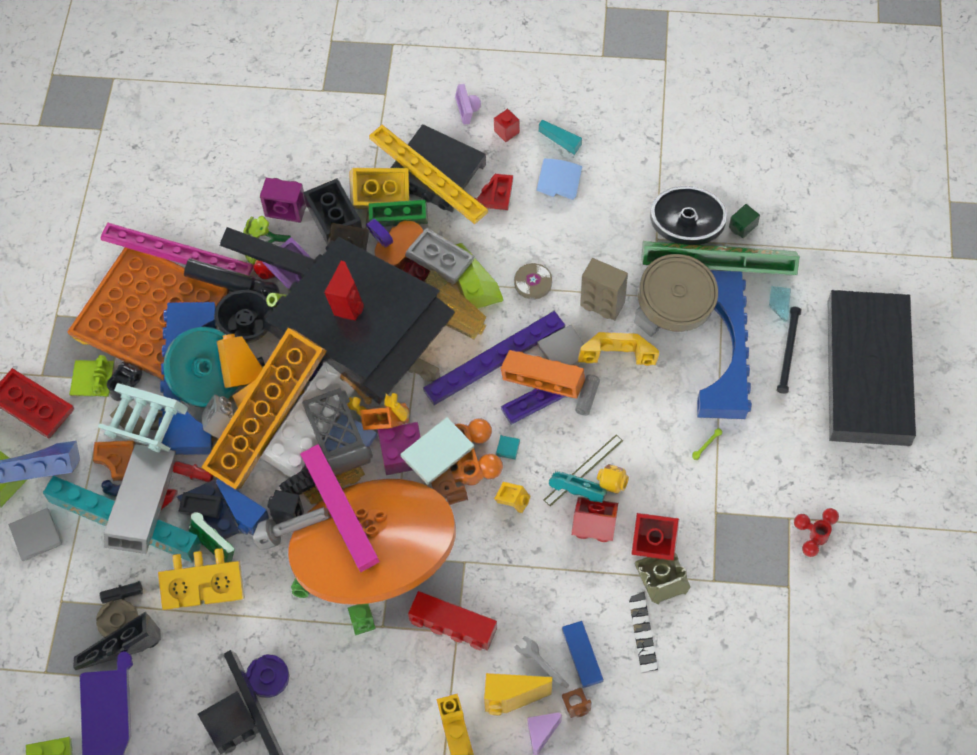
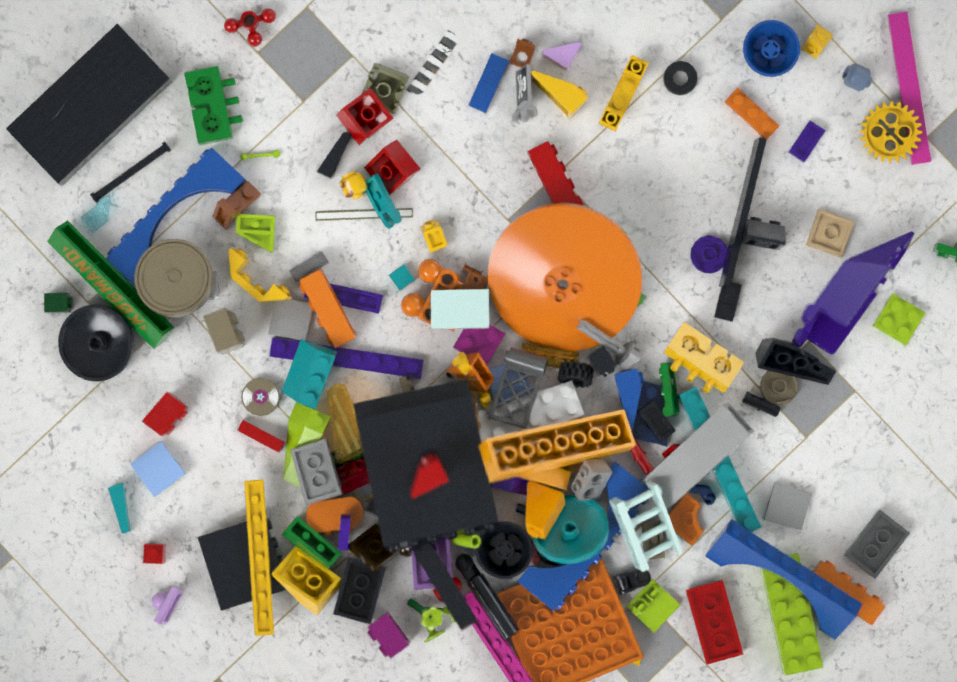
camera: 140 degrees left, 25 degrees up
(216, 647) = (727, 302): none -> black plate
(340, 508) = (571, 314): dark pink tile -> none
(497, 192) = (218, 499): red wing -> none
(505, 256) = (261, 436): none -> red piece
(510, 319) = (309, 373): none -> teal slope
(589, 211) = (166, 414): none -> red slope
(647, 484) = (332, 160): none -> black piece
(653, 388) = (257, 229): none -> lime wing
(688, 390) = (235, 204): none -> dark orange bracket
(787, 448) = (211, 111): none -> green piece

